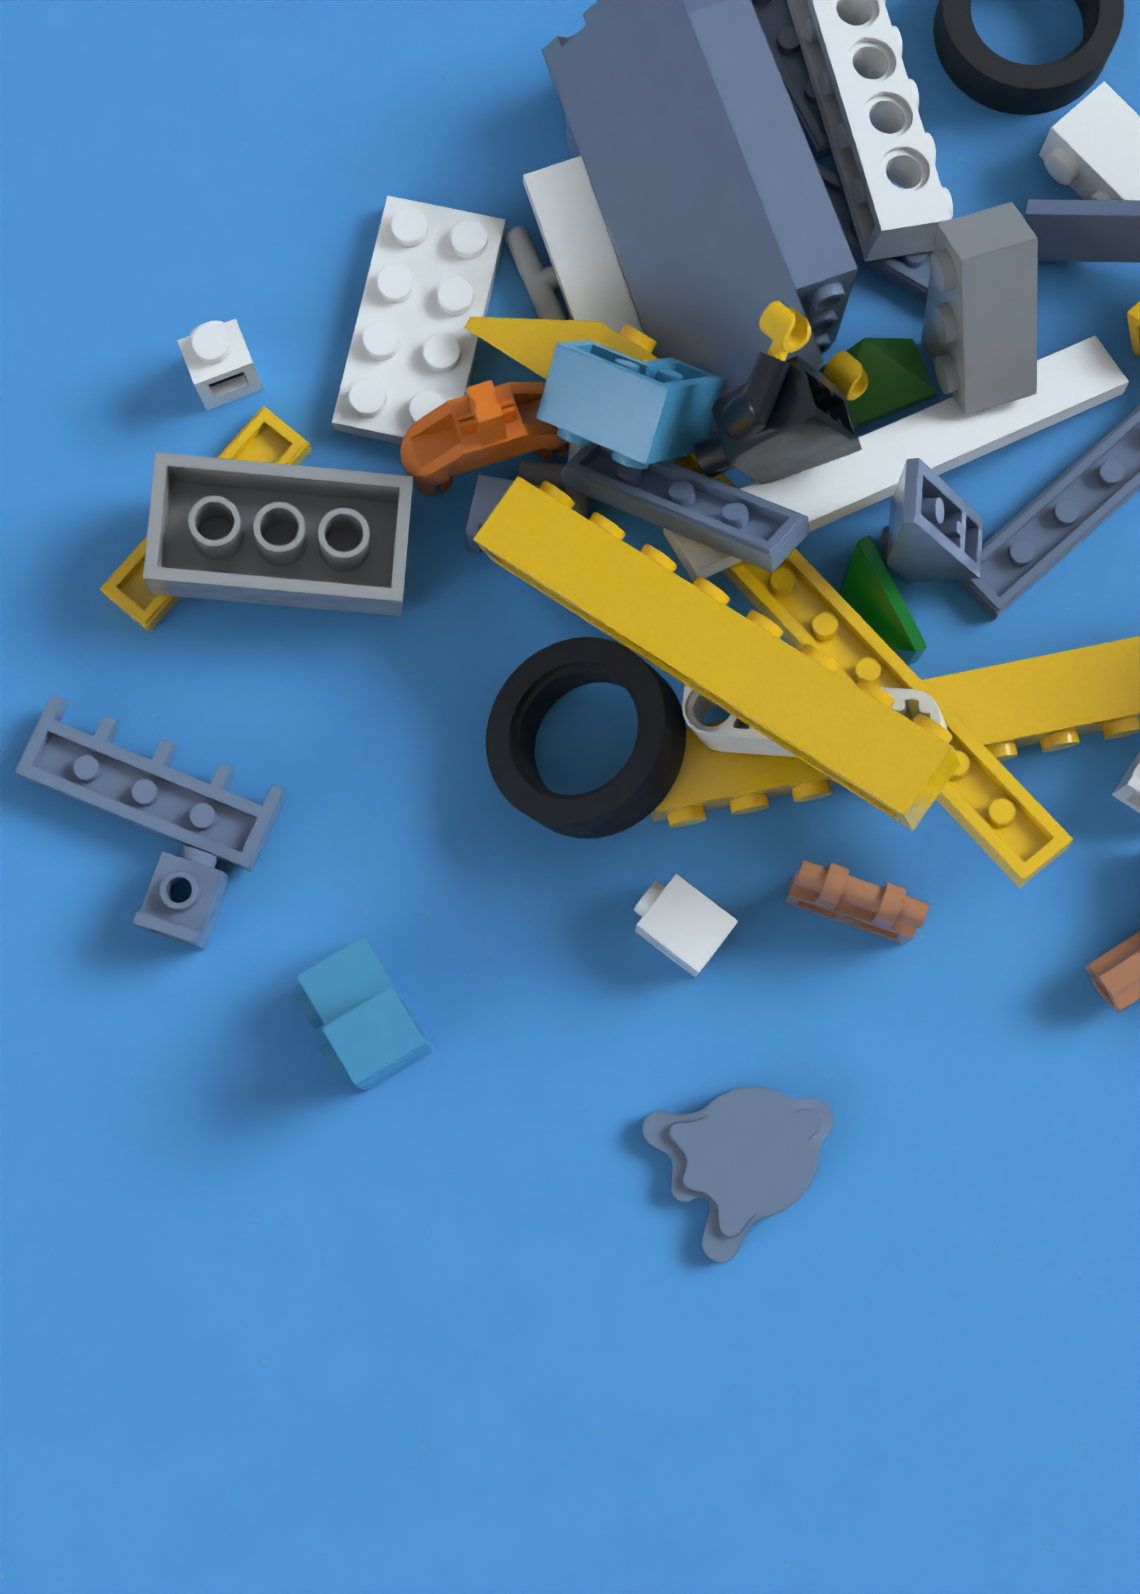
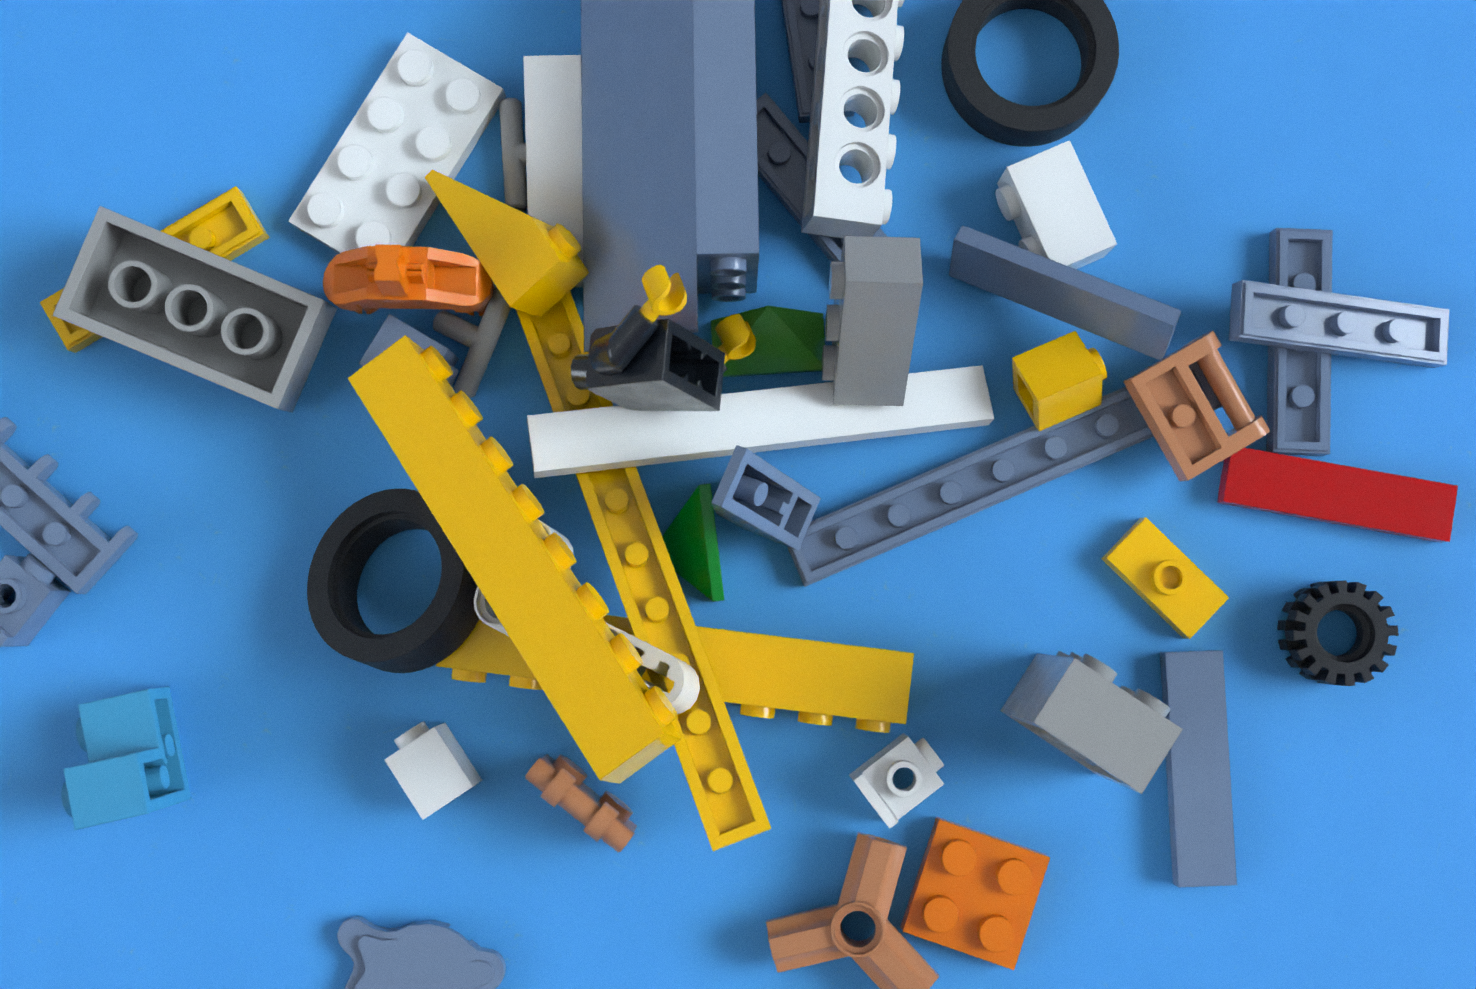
camera: 15 degrees right, 5 degrees up
(215, 353) = (206, 136): white brick -> none
(628, 405) = (522, 306): dark azure brick -> none
(690, 506) = (550, 406): sand blue tile -> none

